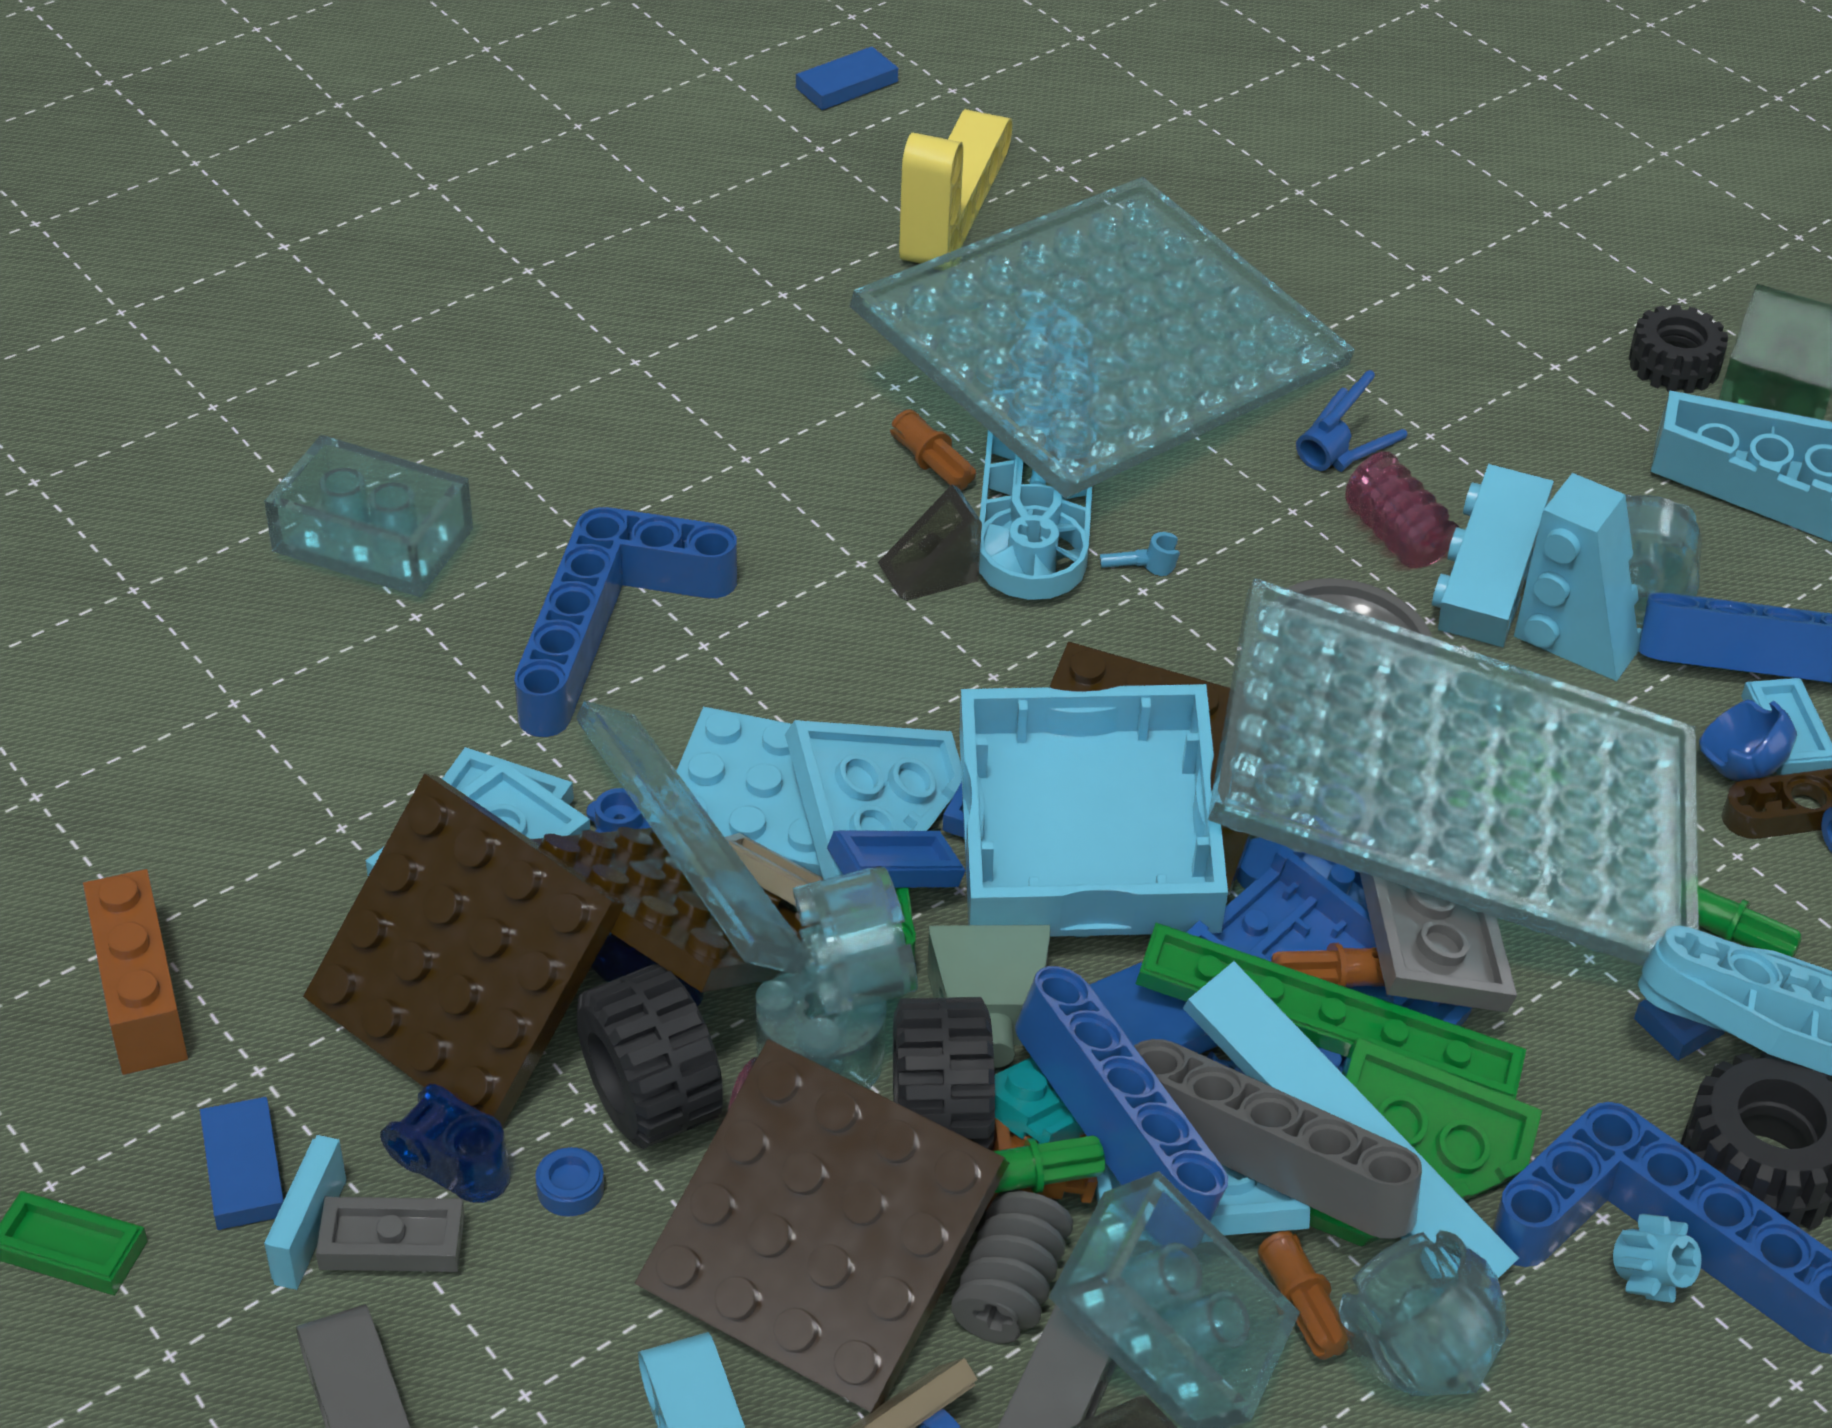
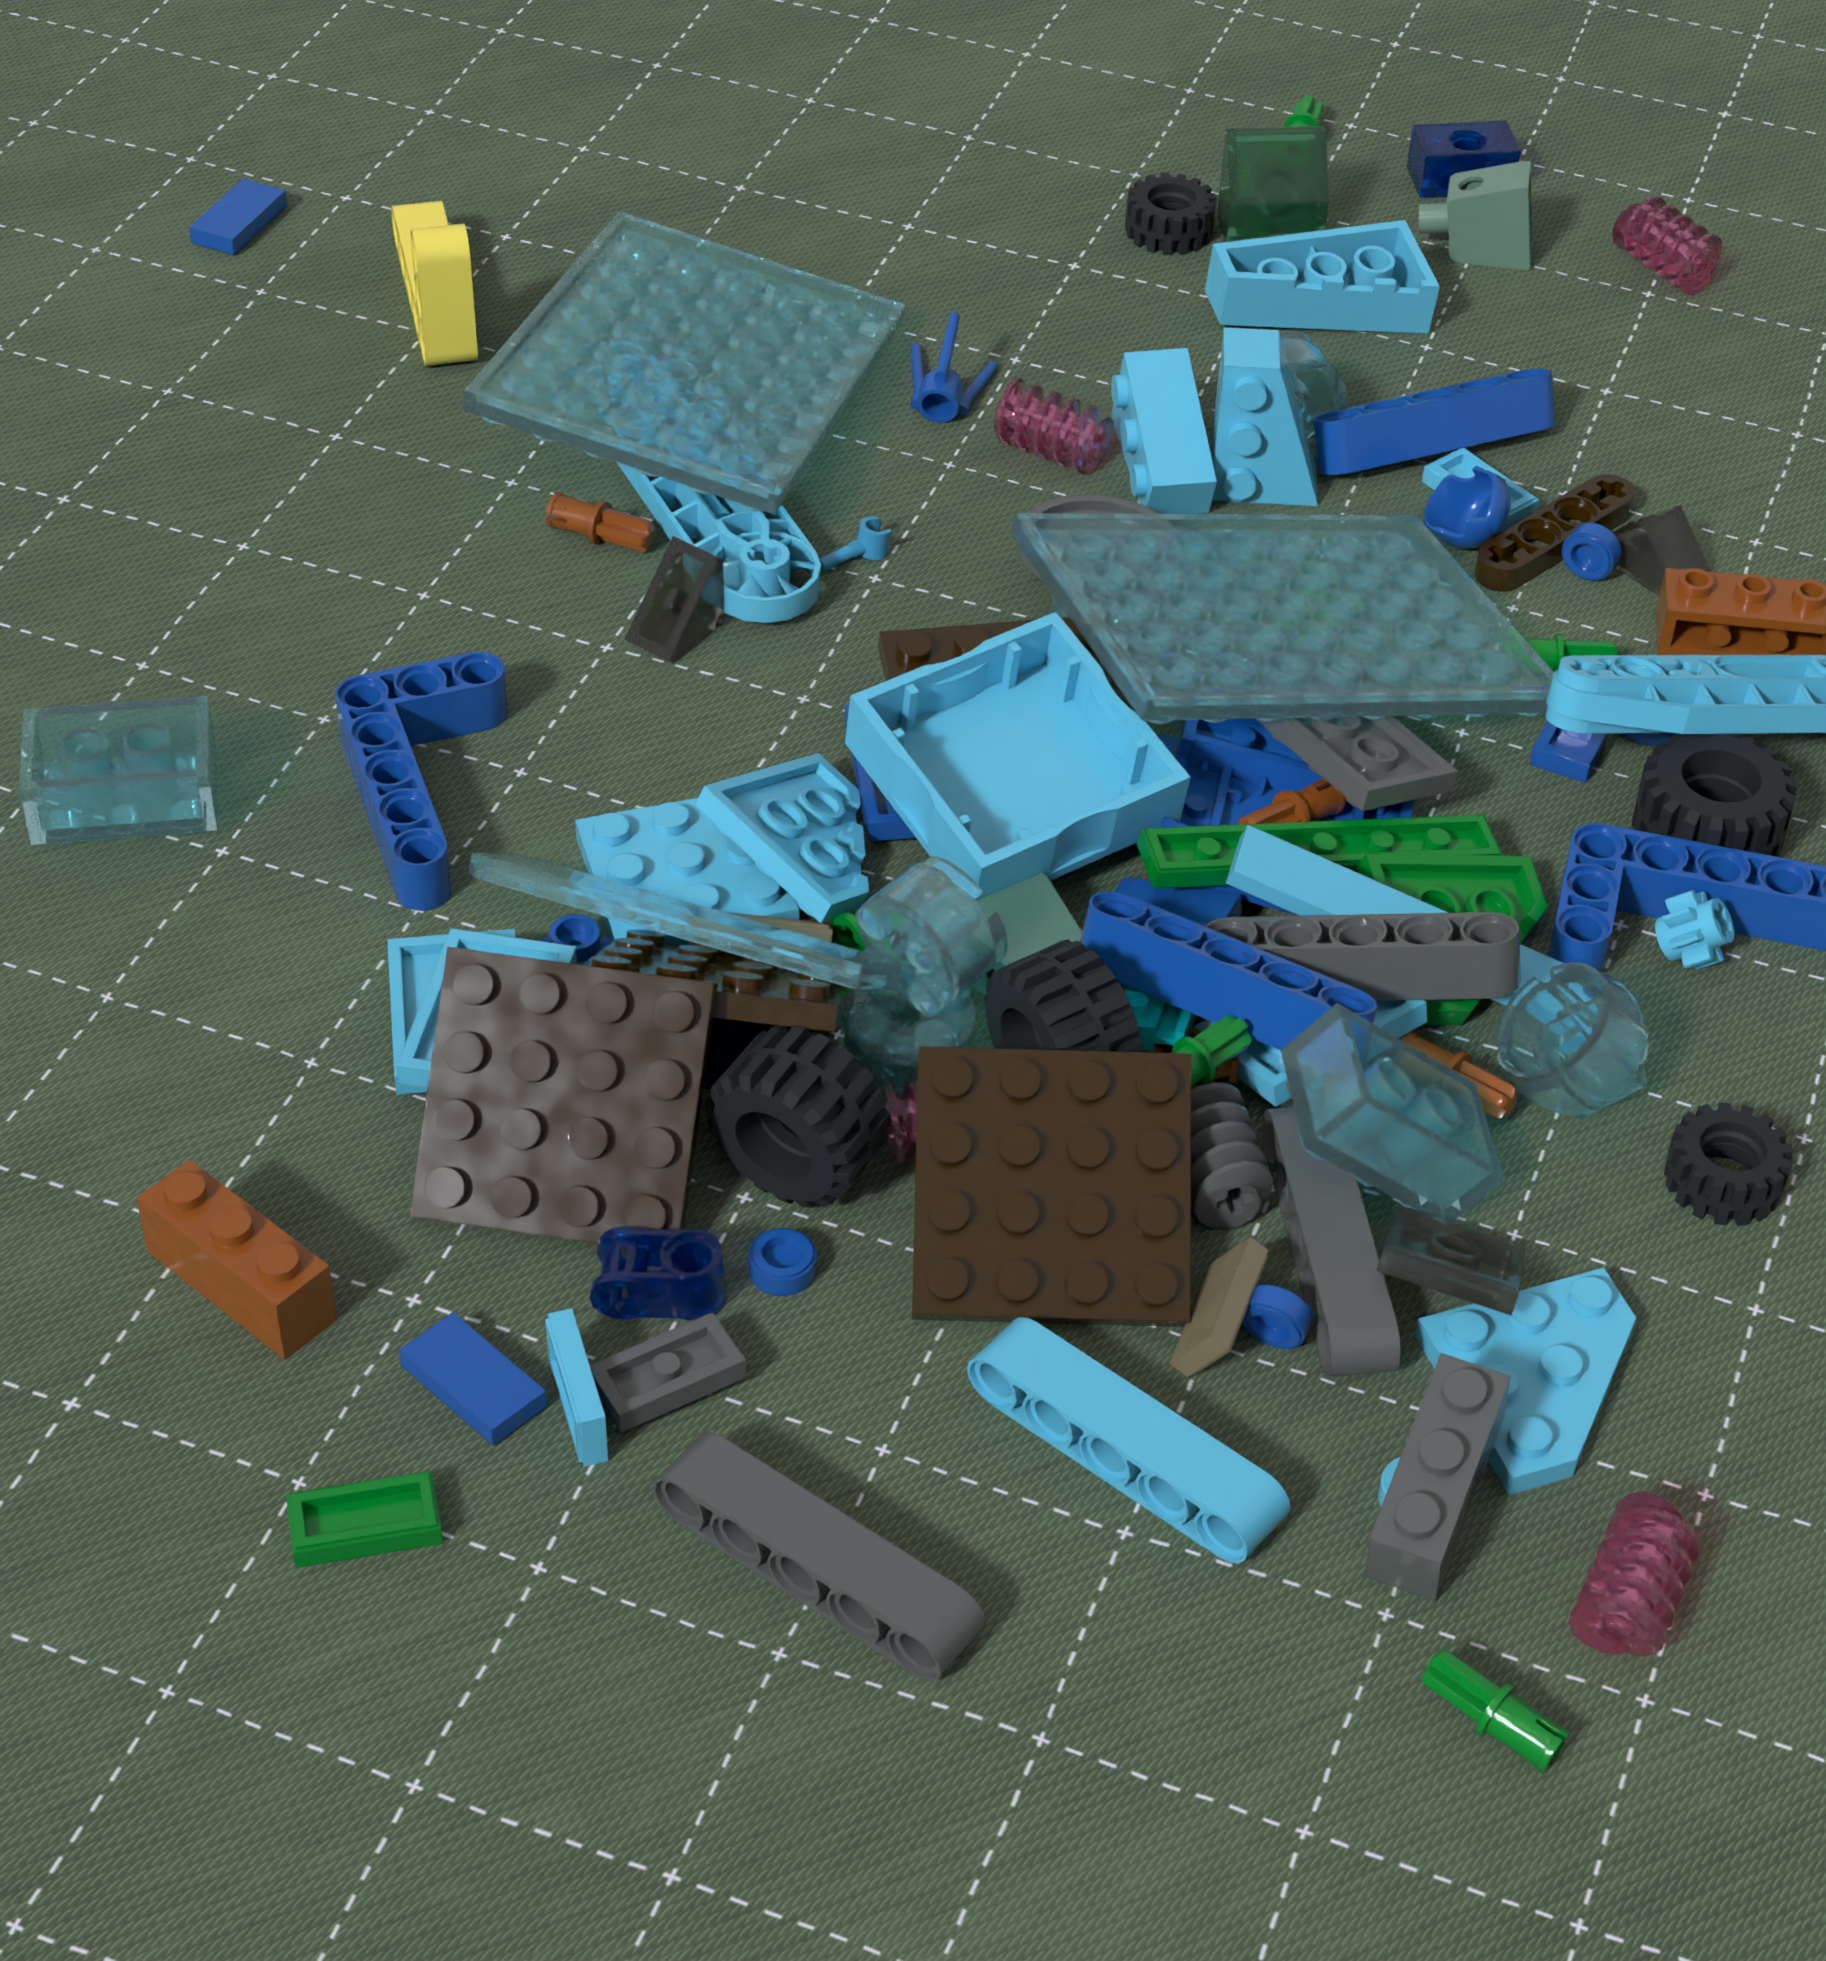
camera: 30 degrees left, 0 degrees up
(908, 856) = (863, 869): blue tile -> none

